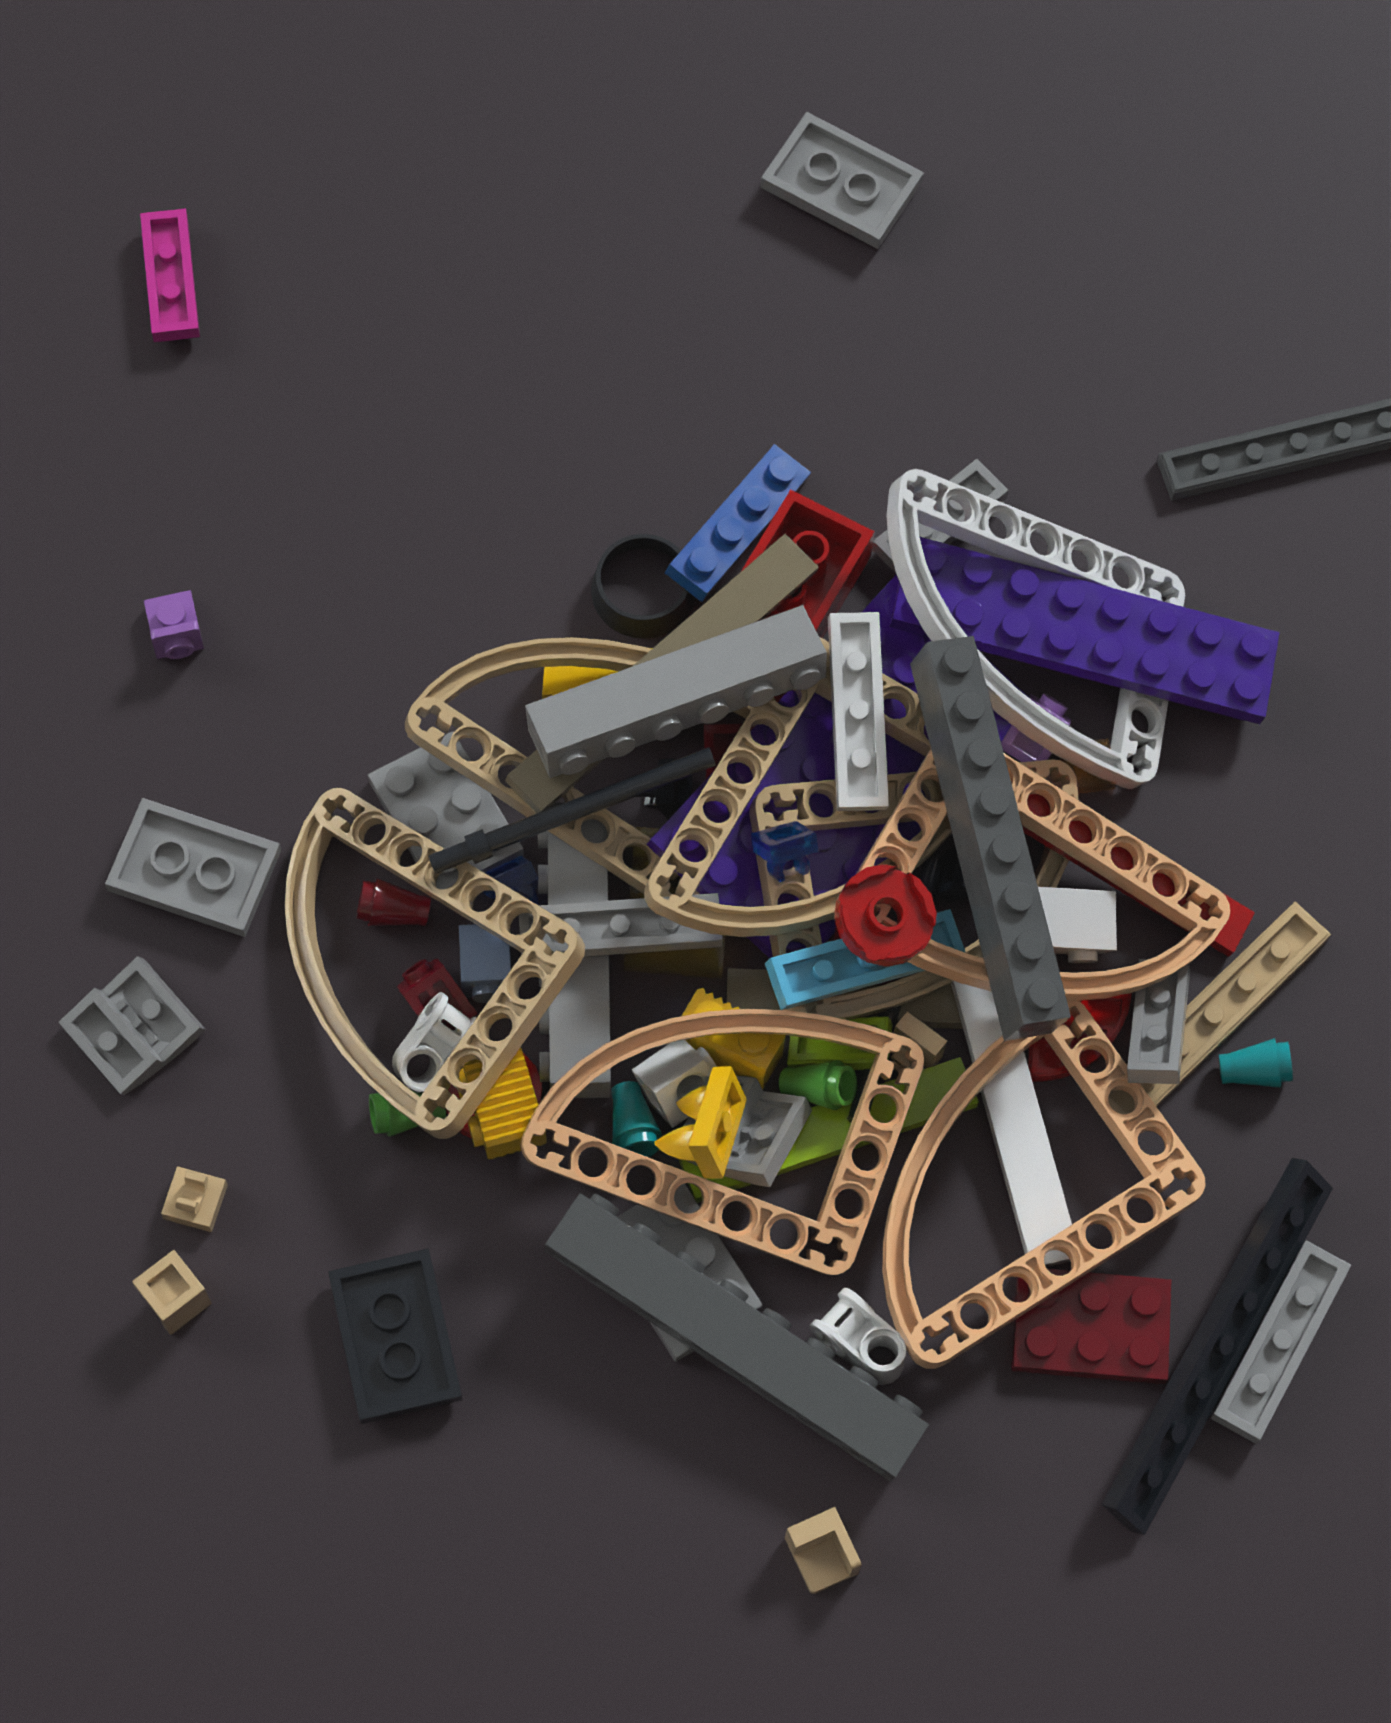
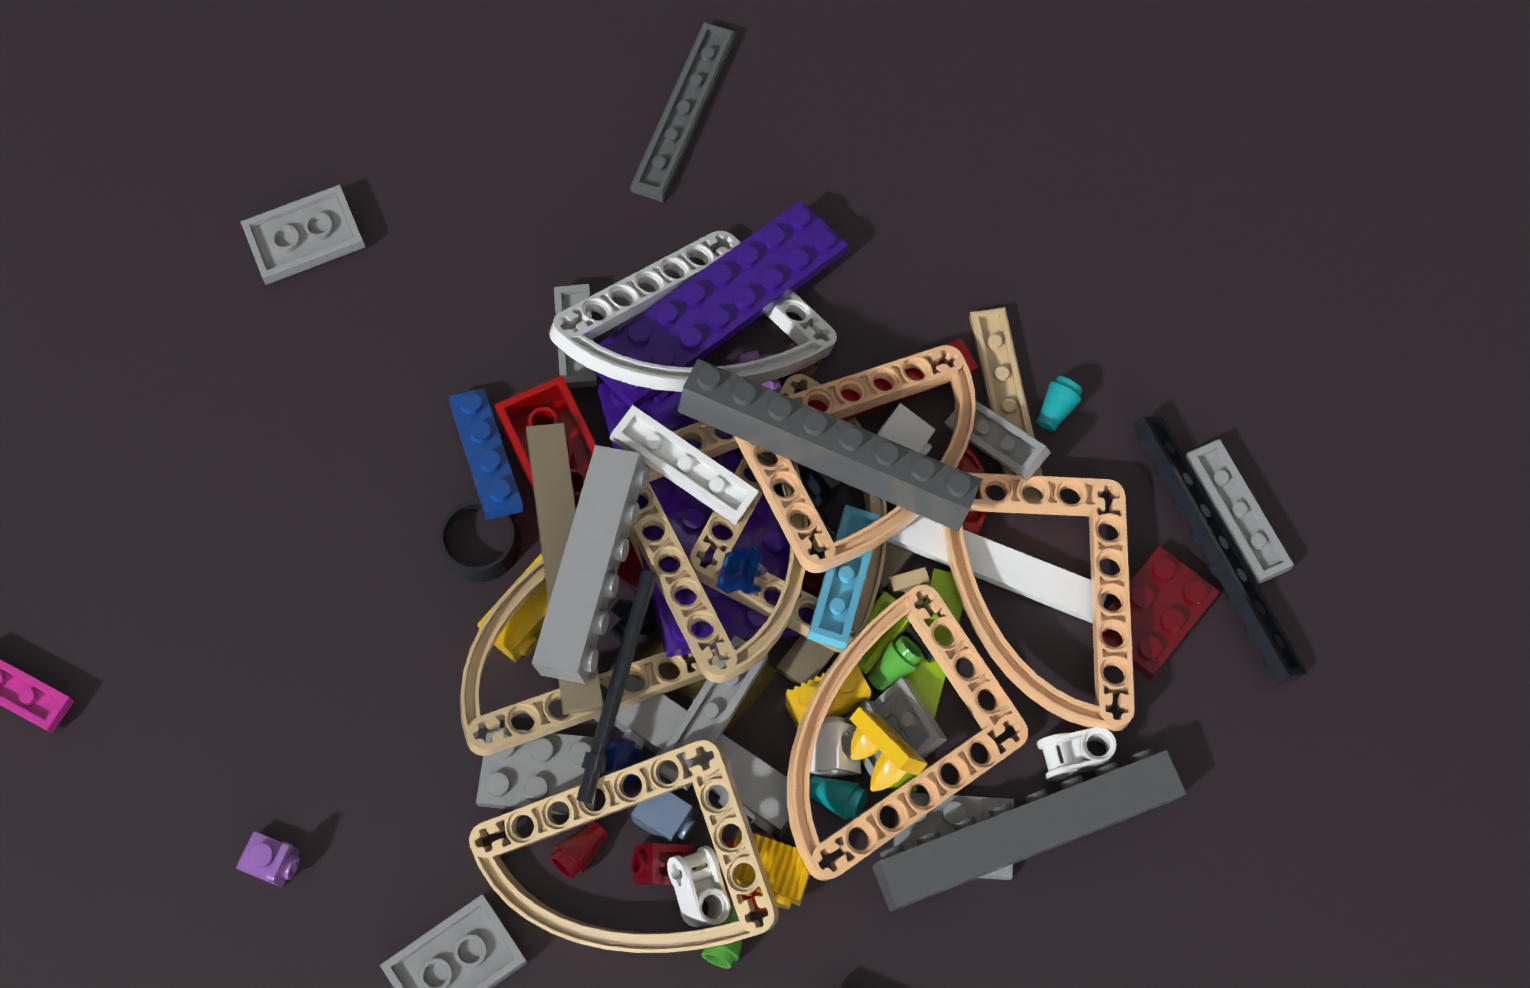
camera: 50 degrees left, 0 degrees up
(823, 1551) = (1197, 871): tan panel -> none
(867, 936) = (830, 561): red tile -> none

